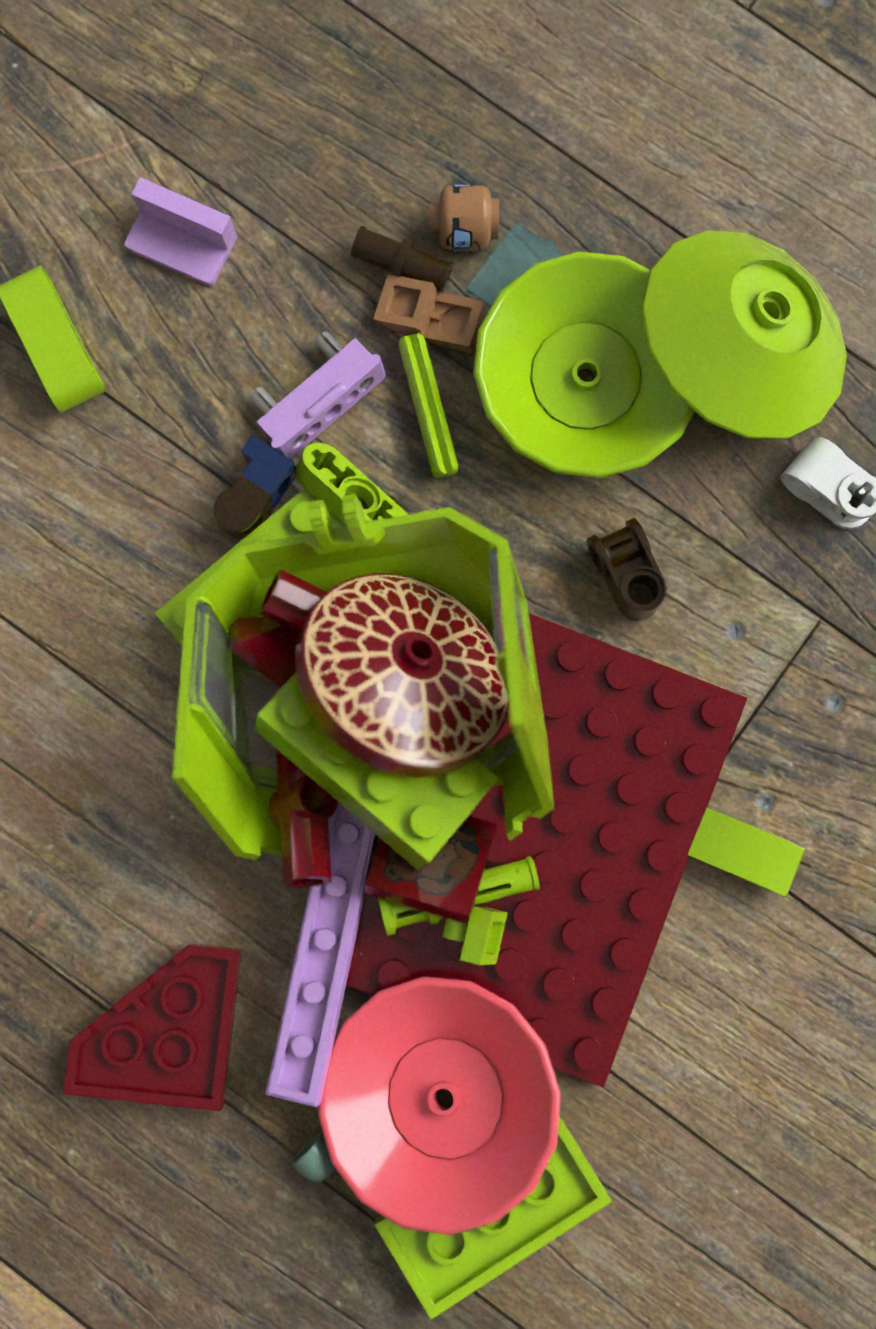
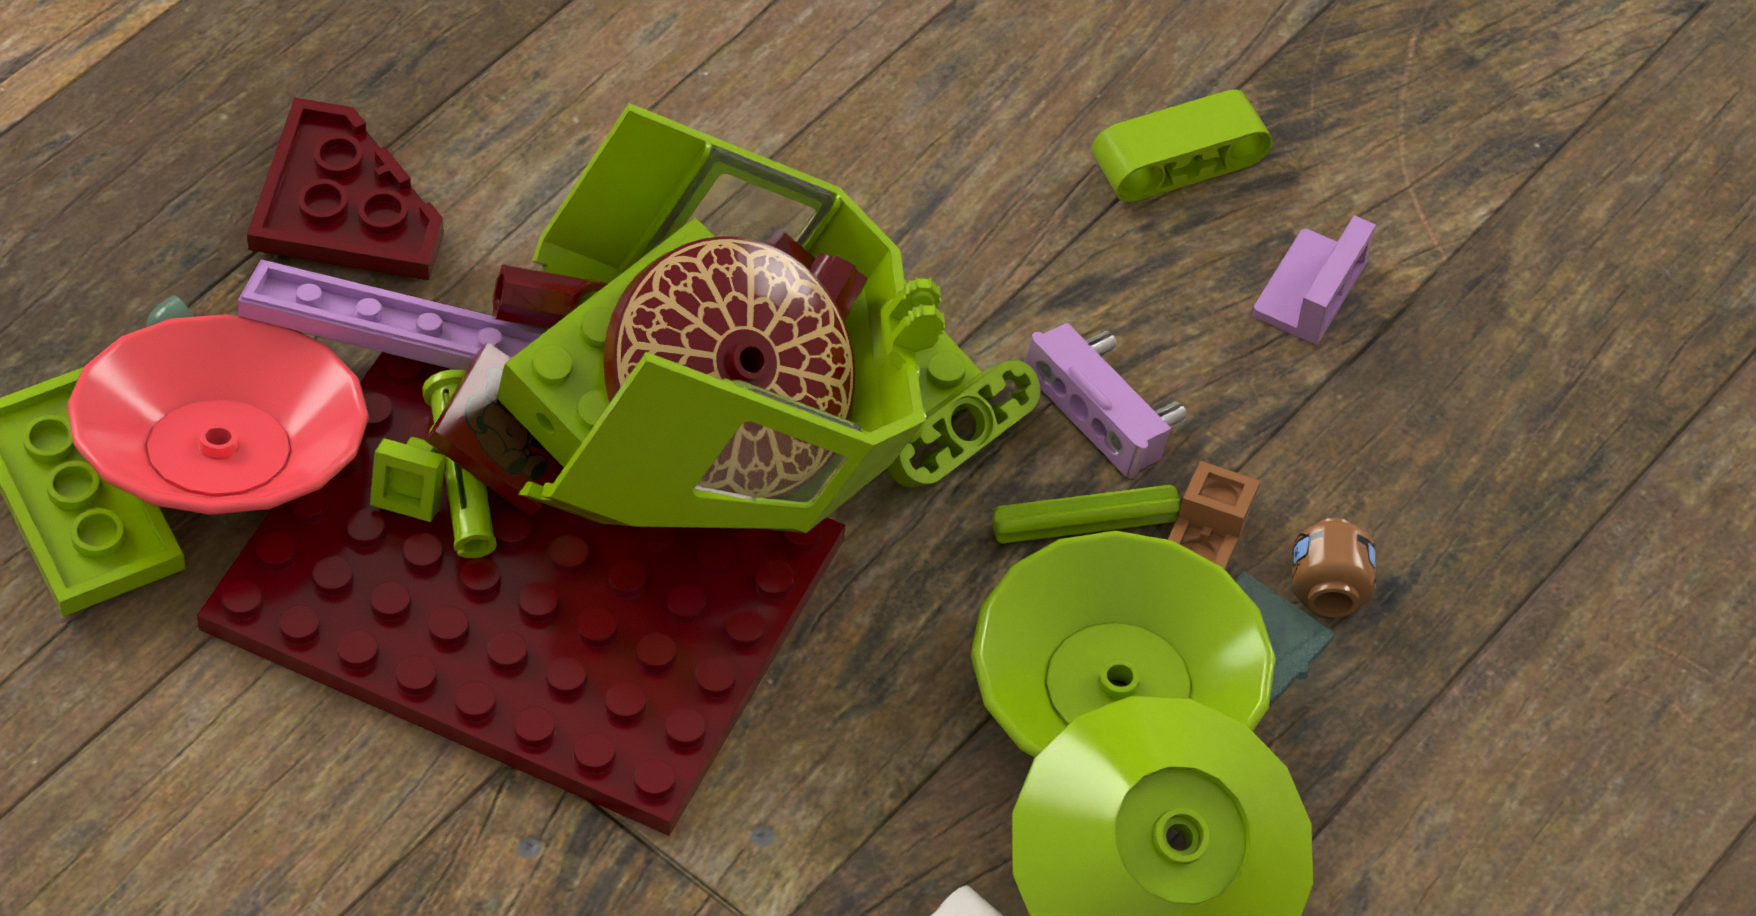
camera: 90 degrees right, 30 degrees down
(256, 491) = (984, 324): leg -> none
(401, 258) = (1279, 498): dark brown pin -> none
(625, 560) = (858, 703): dark brown piece -> none
(746, 852) = (464, 800): lime slope -> none

